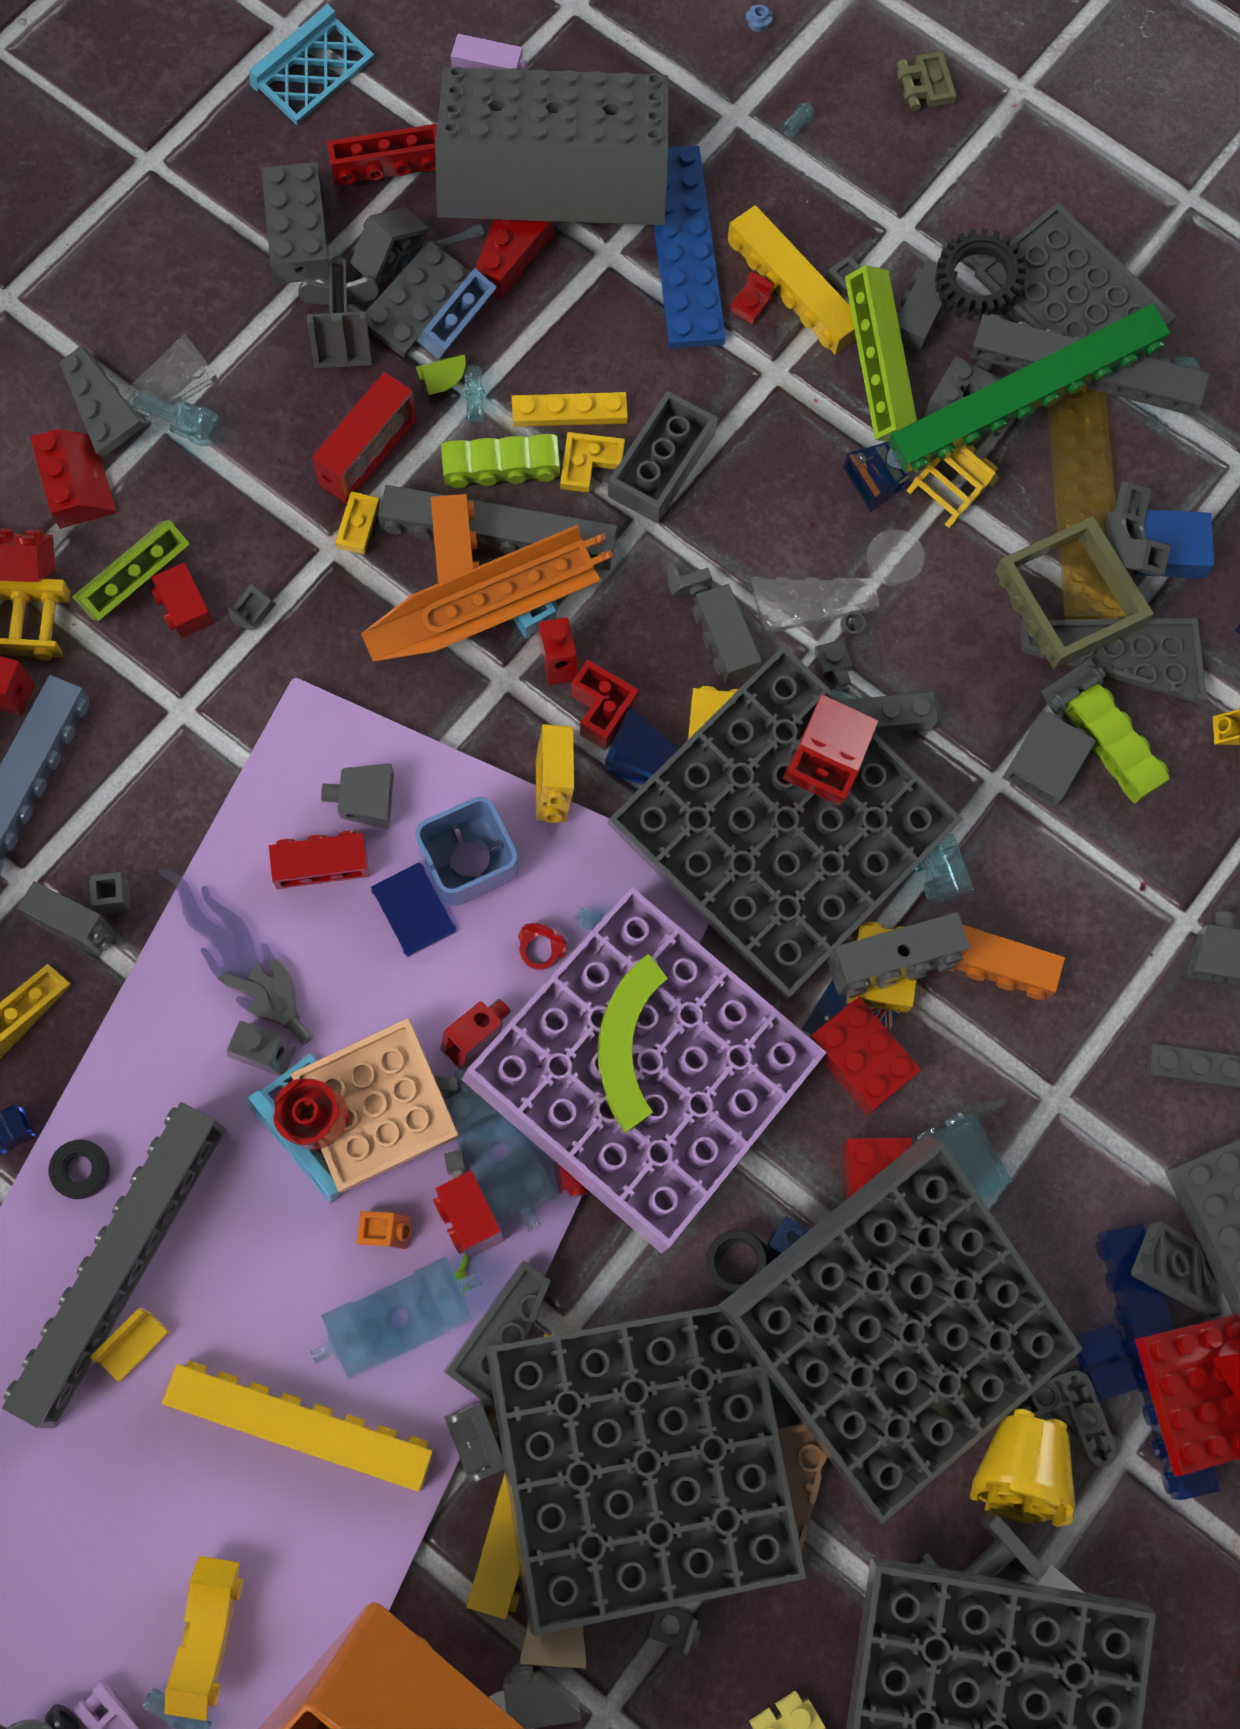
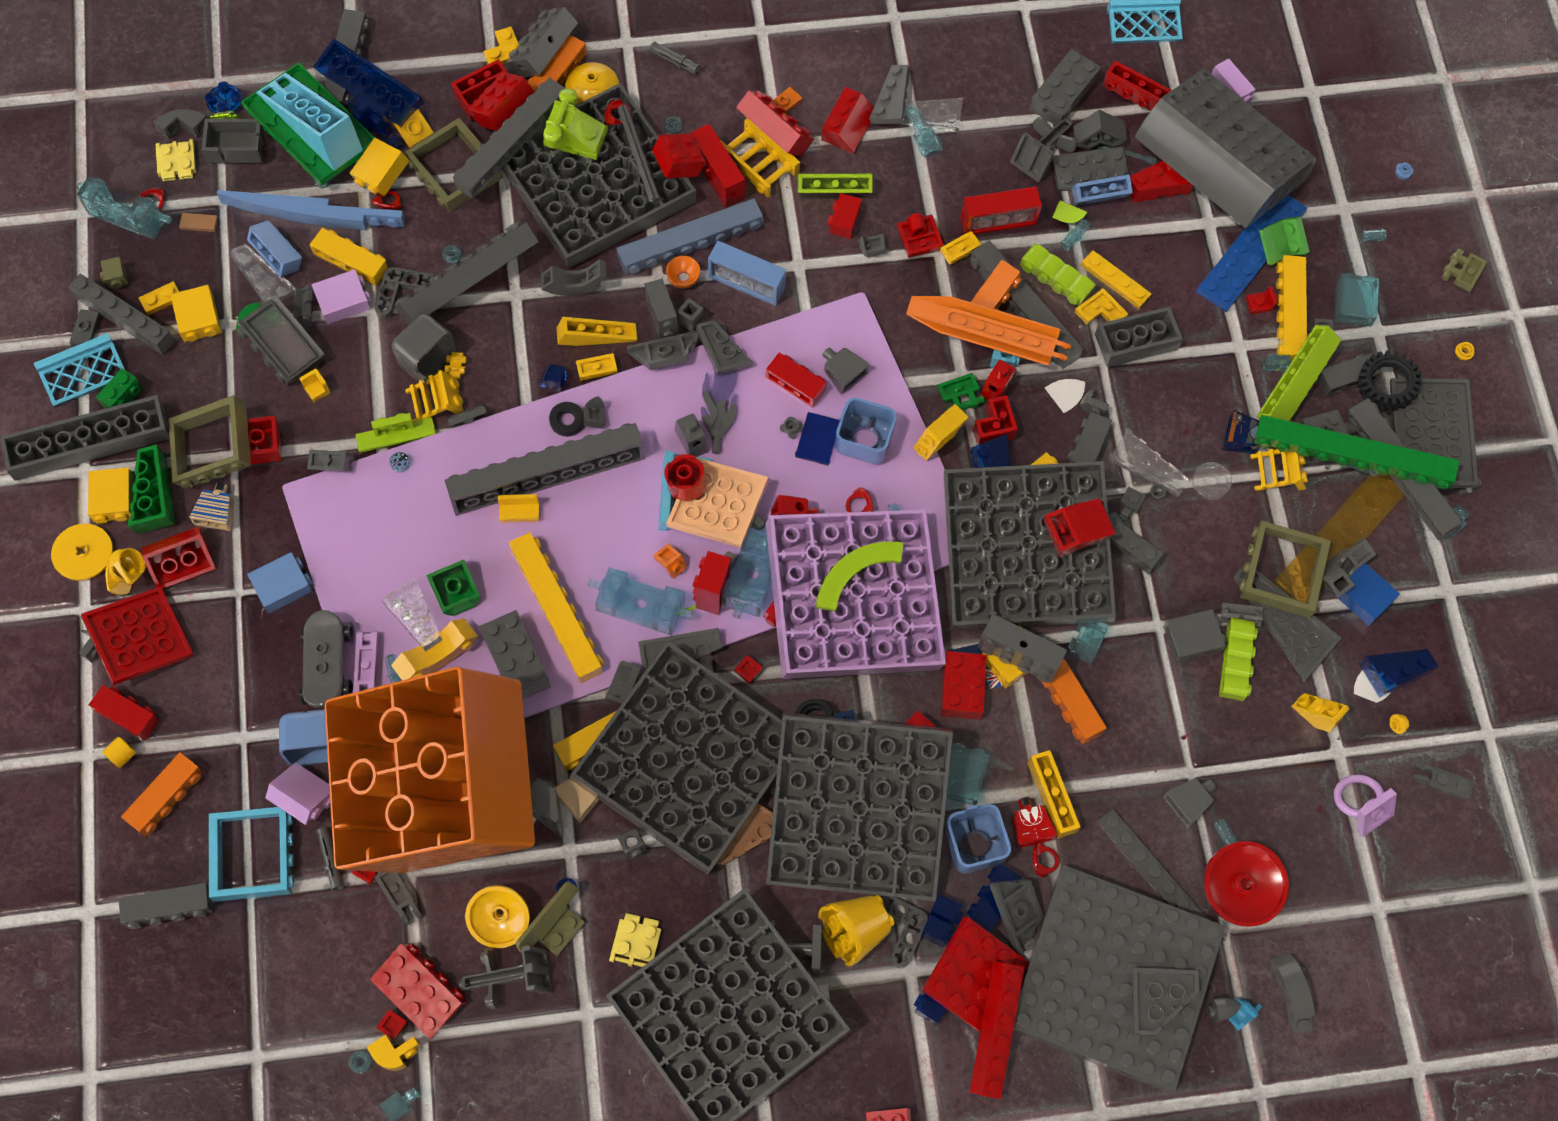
camera: 45 degrees right, 5 degrees down
(38, 836) = (685, 265): none -> orange piece
(52, 1065) = (596, 367): none -> yellow plate
(109, 1131) = (594, 413): none -> dark grey plate
(121, 968) = (665, 351): none -> dark grey wing
(126, 1615) = (413, 613): none -> clear wing
(130, 778) = (746, 273): none -> medium blue brick
(144, 1528) = (454, 588): none -> green slope
(193, 905) = (720, 349): none -> dark grey wing
(294, 548) = (919, 235): none -> red plate
(309, 1542) = (515, 653): none -> dark grey brick
(364, 917) = (790, 421): none -> dark grey plate
(518, 698) = (958, 388): none -> green plate
(603, 1274) = (748, 669): none -> red plate
(641, 594) = (1066, 393): none -> white sticker
(713, 201) = (1284, 238): none -> bright green bracket
(836, 357) = (1276, 363): none -> clear light blue bracket
(850, 210) = (1356, 299): none -> clear light blue brick
(1014, 169) = (1468, 348): none -> yellow plate
(1082, 1091) = (1053, 794): none -> yellow brick
(1086, 1216) = (984, 821): none -> medium blue piece
(1090, 1150) = (1031, 825): none -> red torso
(1146, 1192) = (1042, 871): none -> red piece

